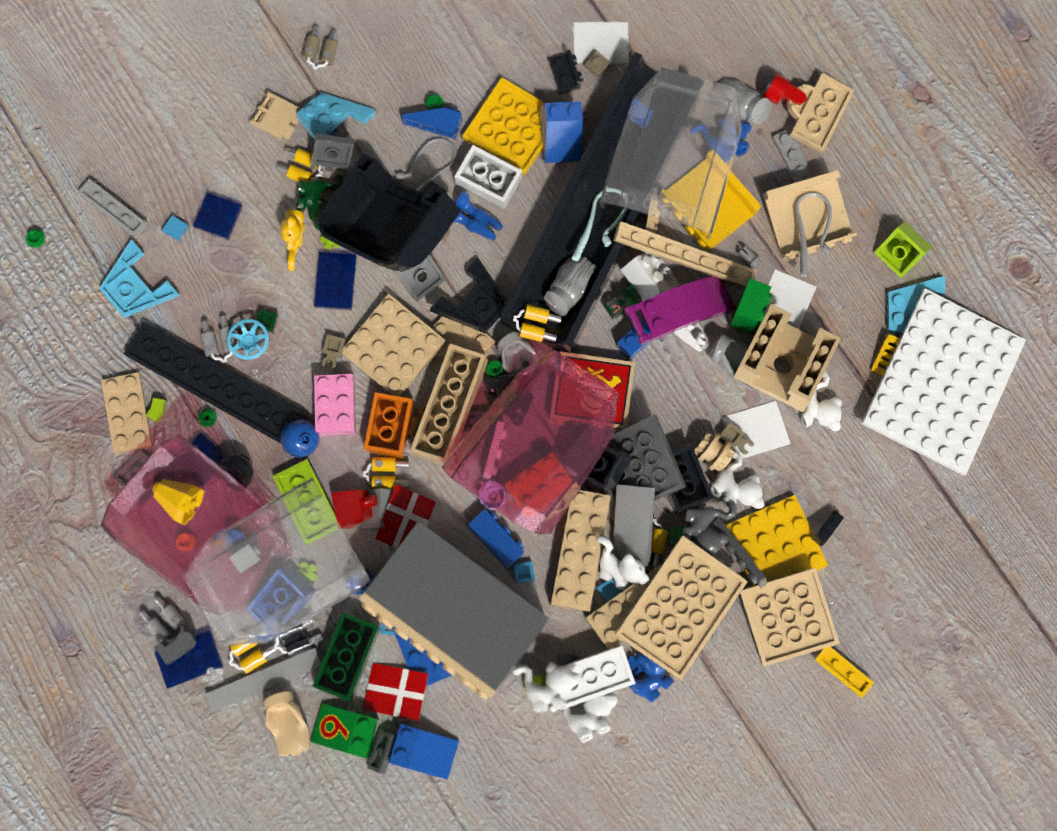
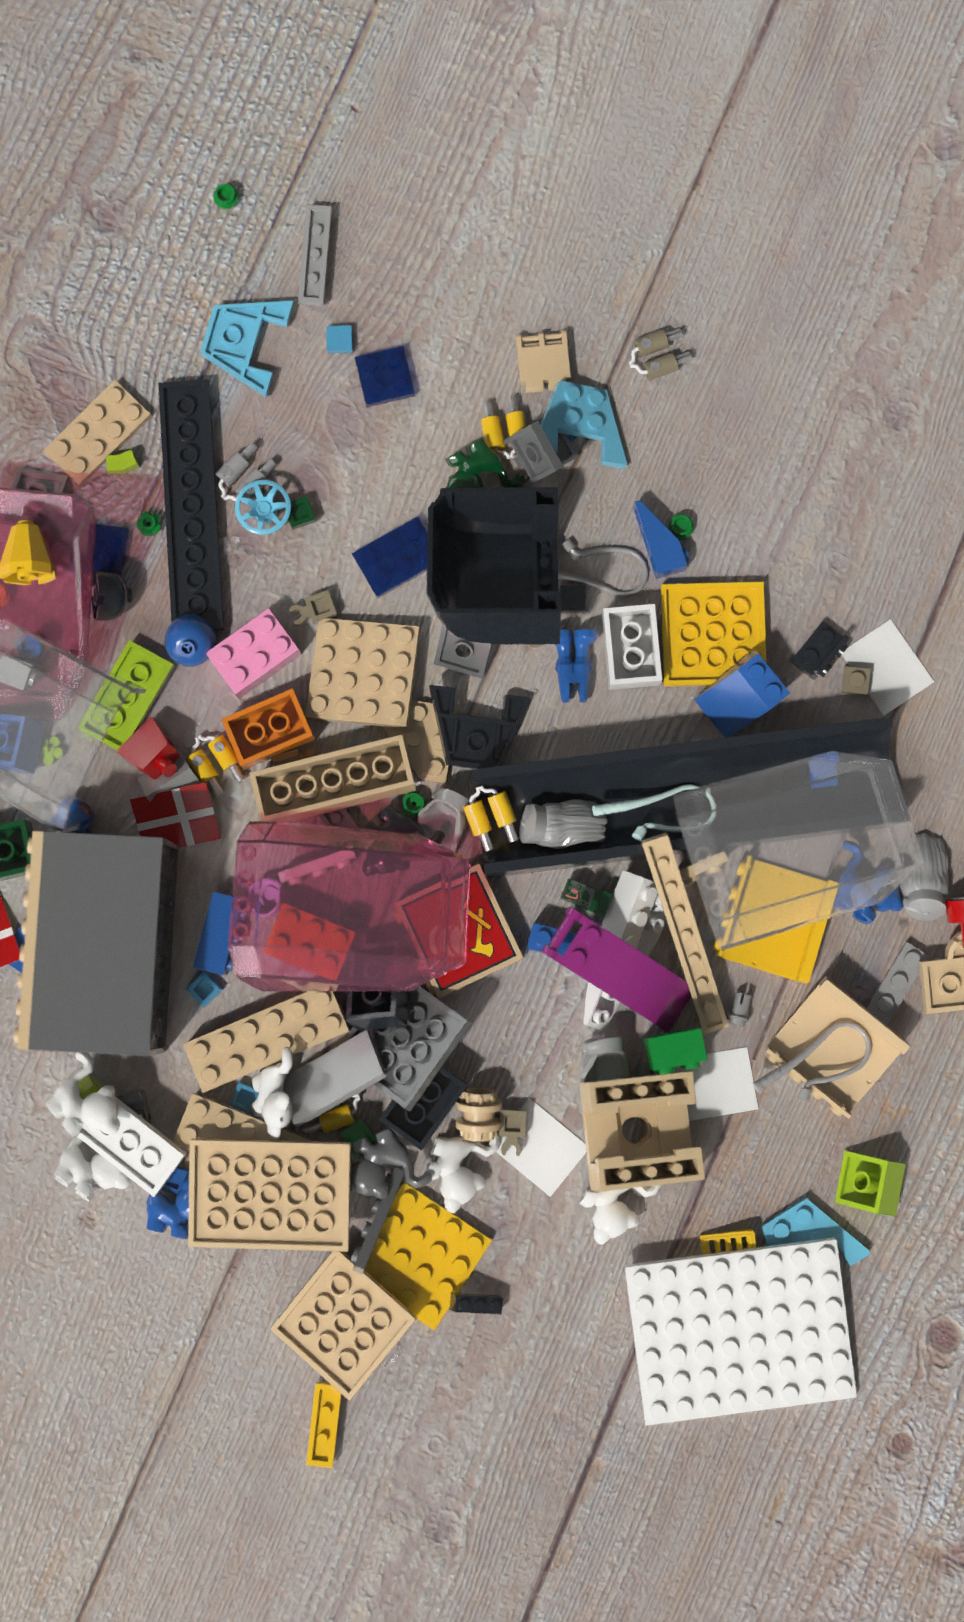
camera: 60 degrees right, 5 degrees up
(292, 233) = (414, 473): yellow animal -> none

